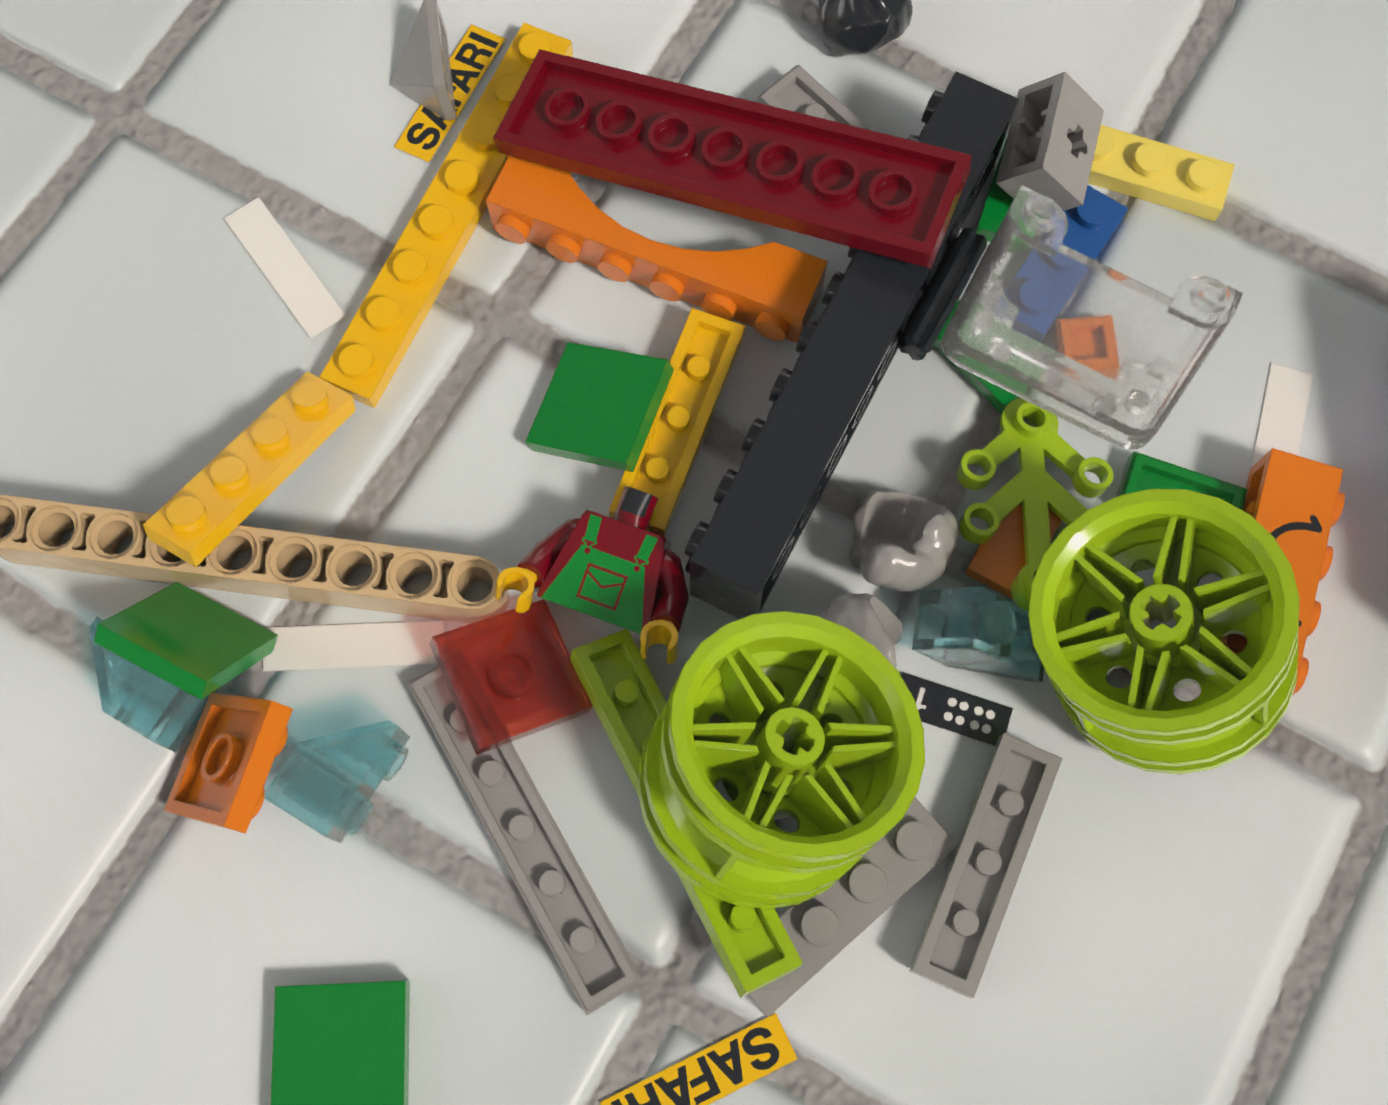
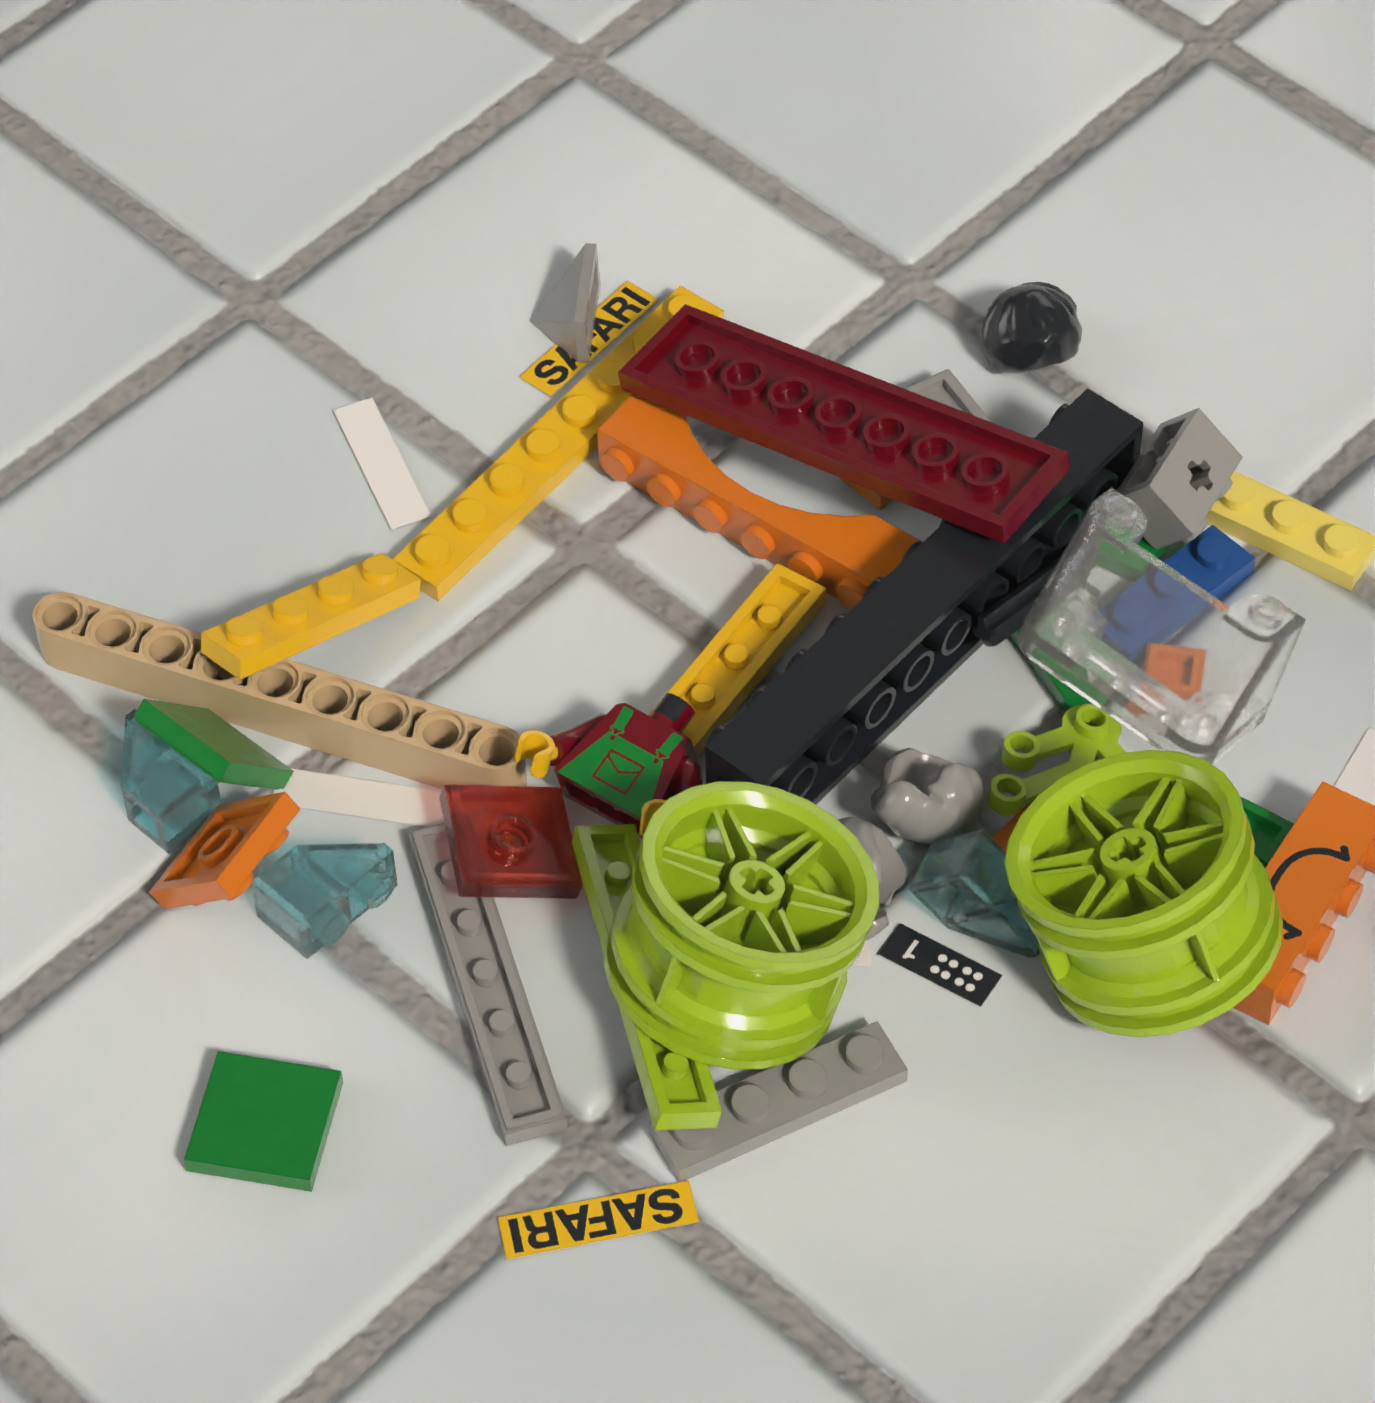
camera: 15 degrees right, 20 degrees down
(600, 406) = (661, 631): green tile -> none
(985, 866) = (929, 1089): light grey plate -> none

